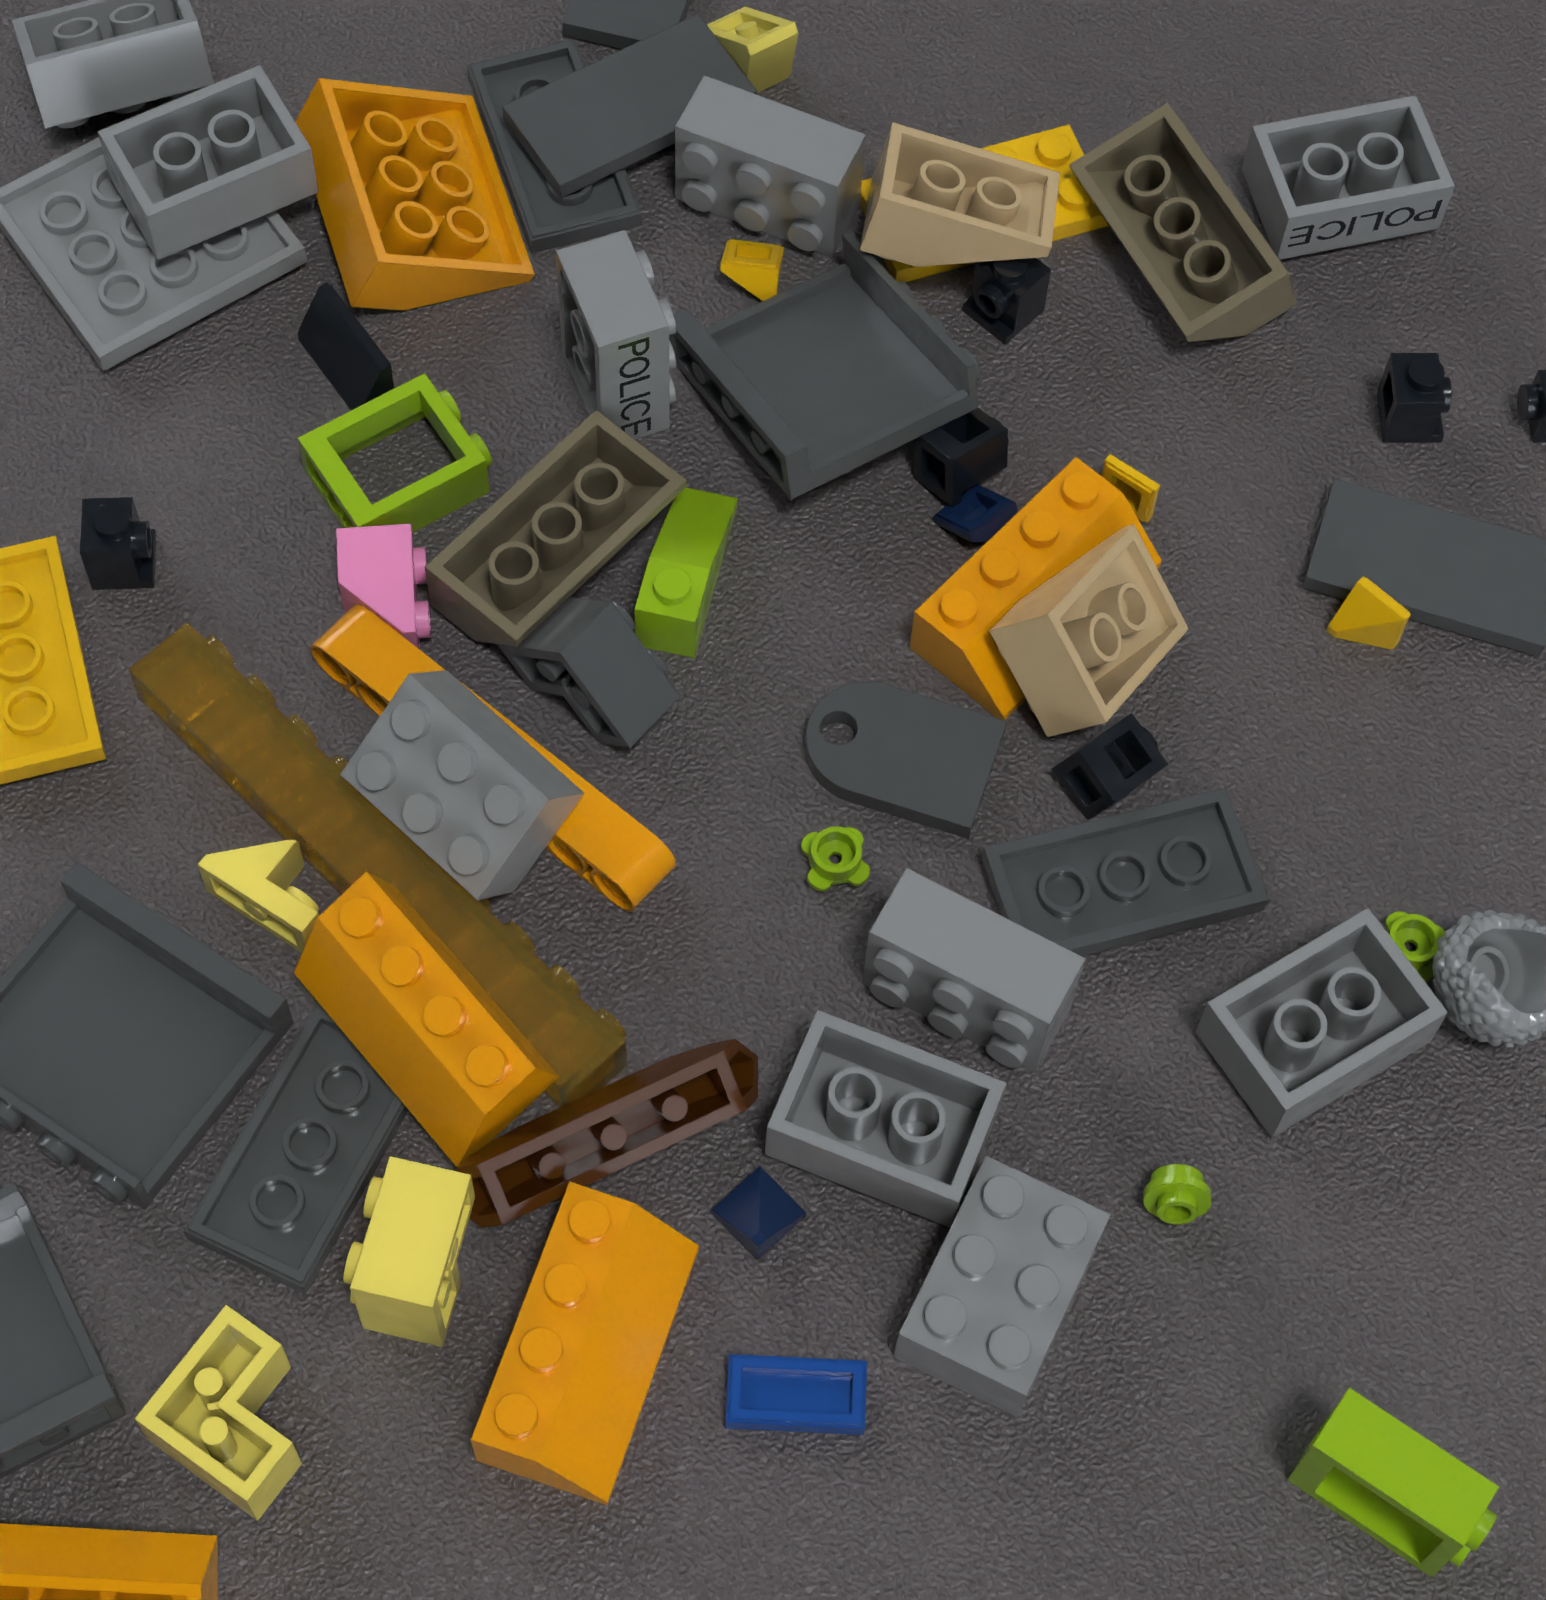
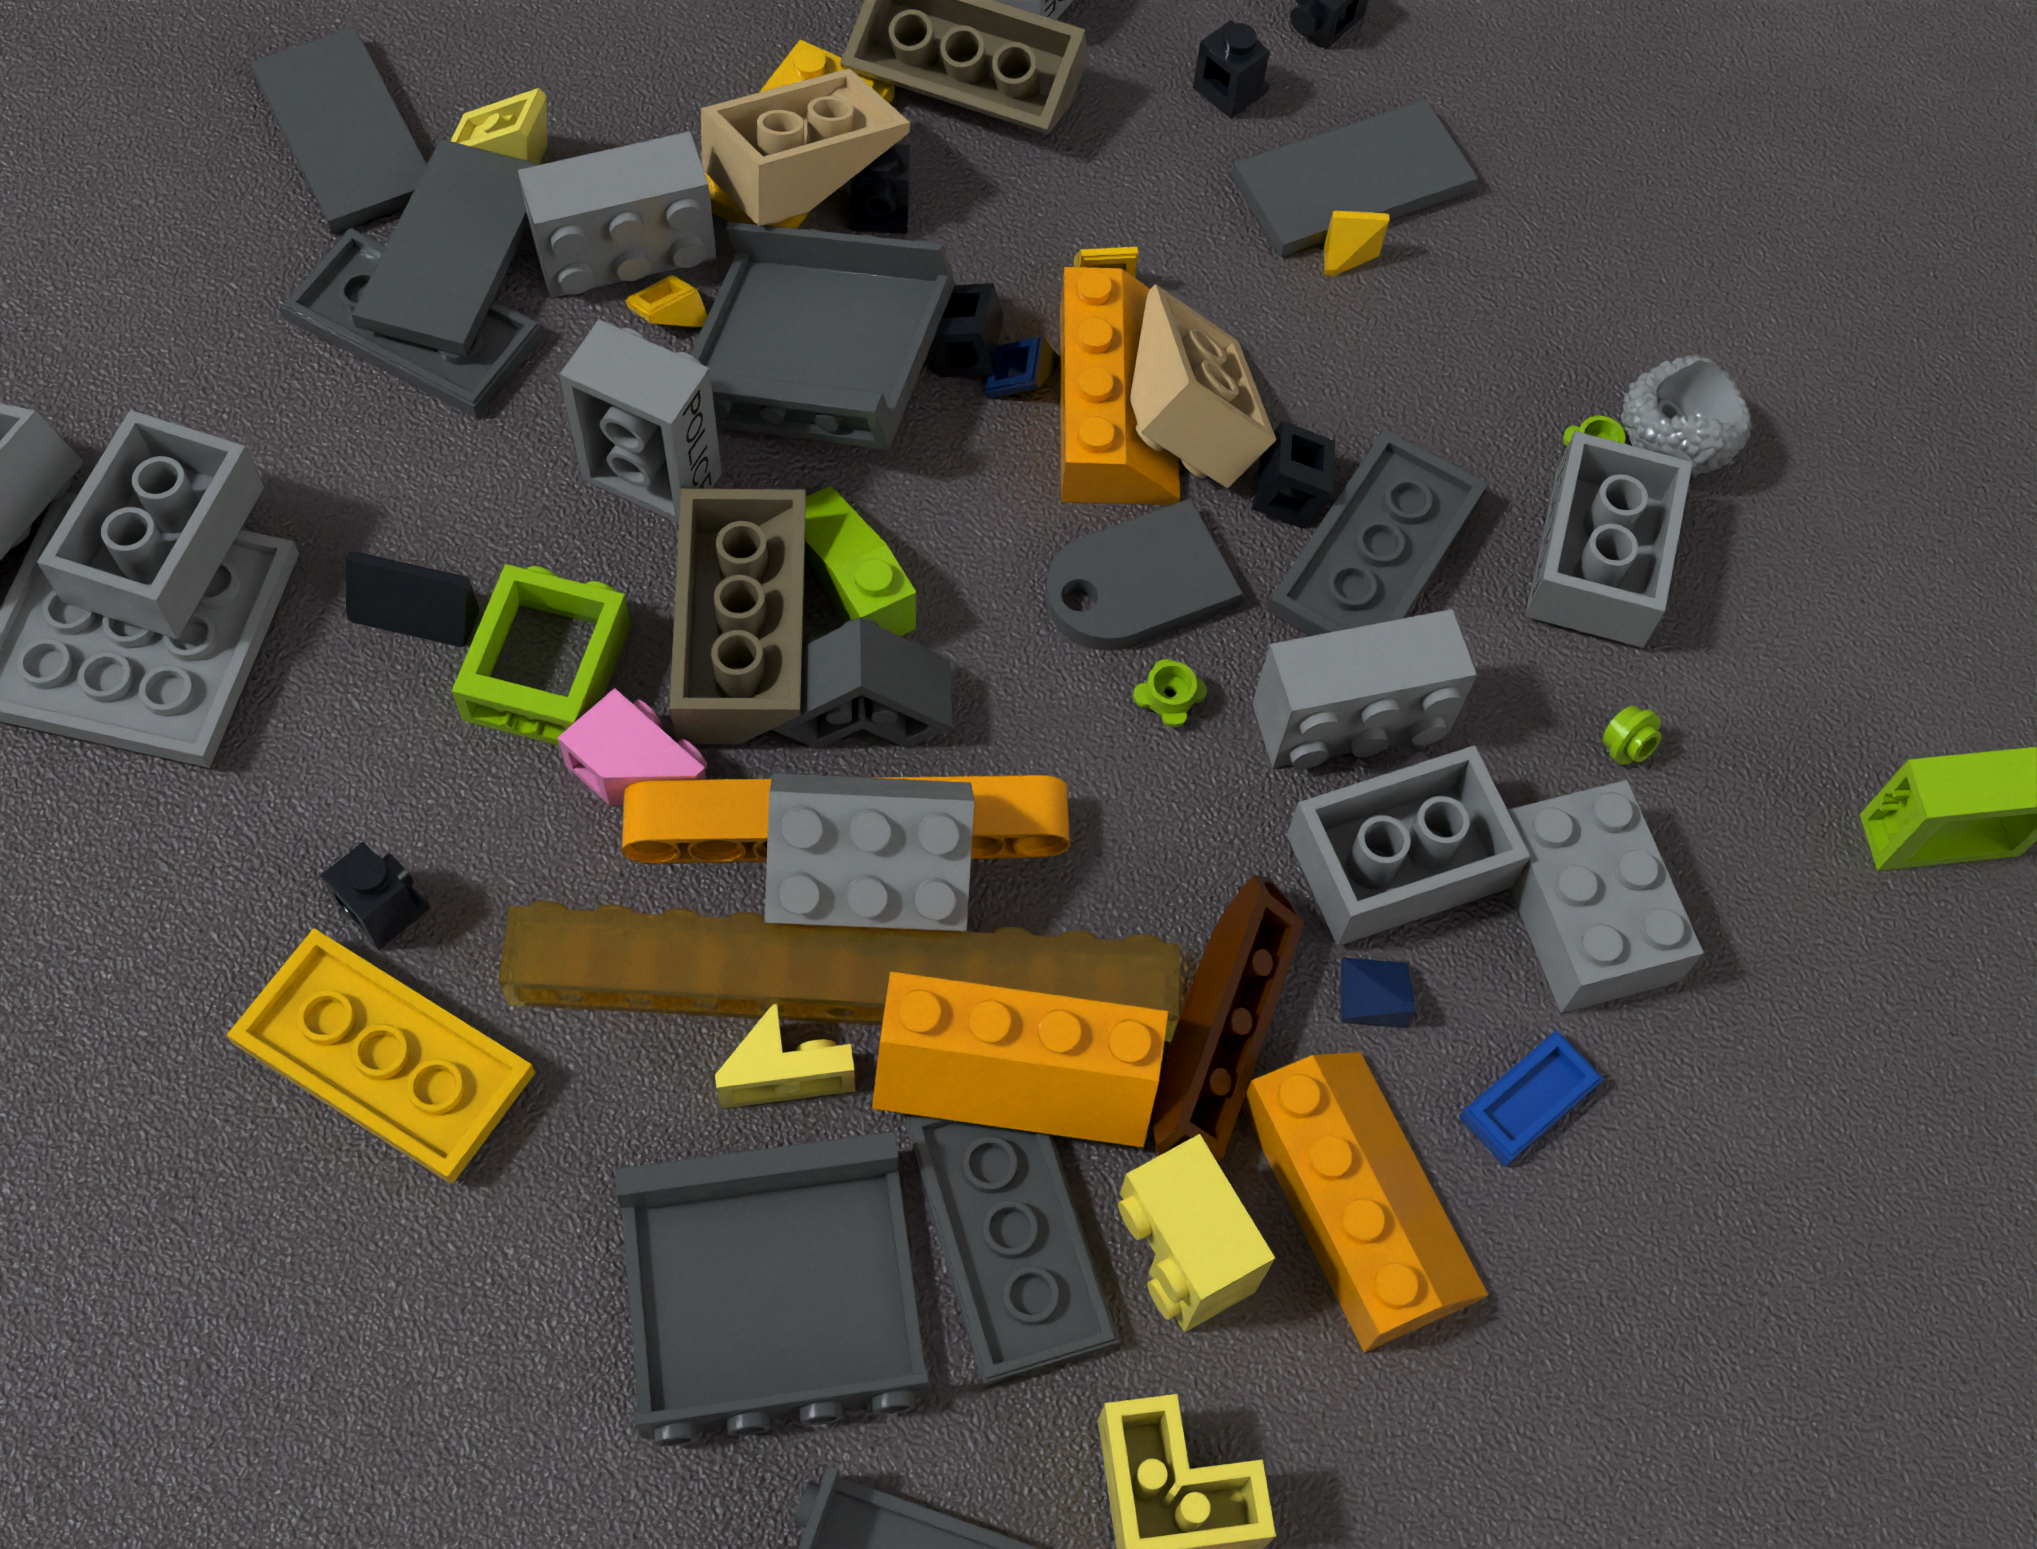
camera: 45 degrees left, 0 degrees up
(410, 195) = (342, 439): light orange slope -> none

